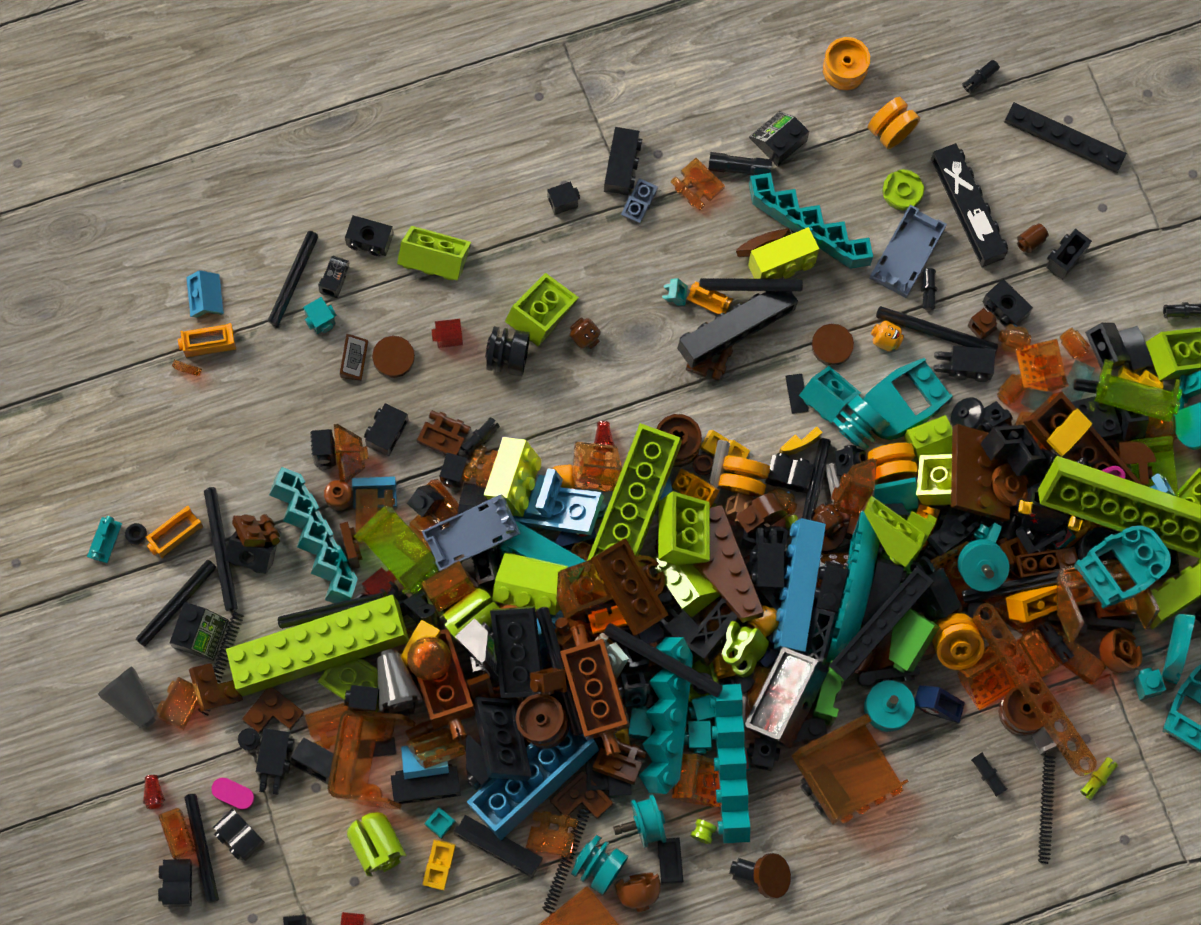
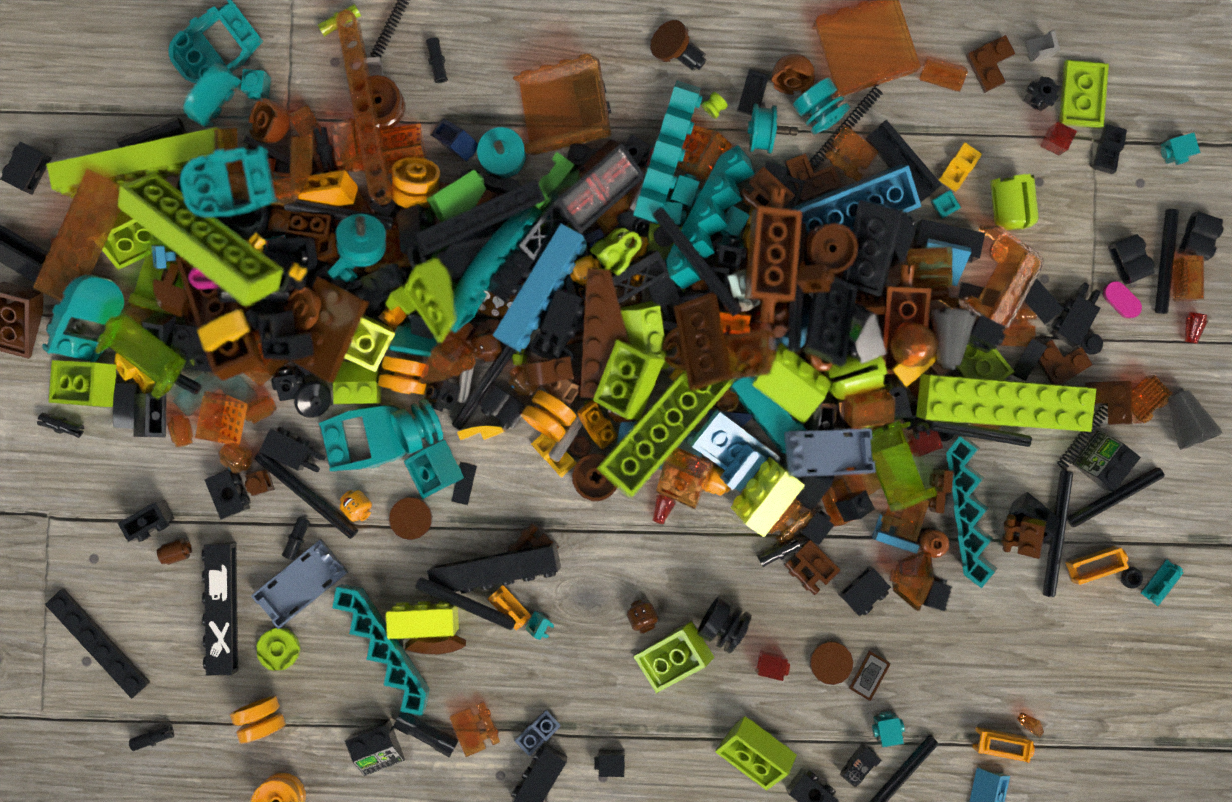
camera: 155 degrees left, 15 degrees up
(305, 701) = (1029, 359): none -> black sticker

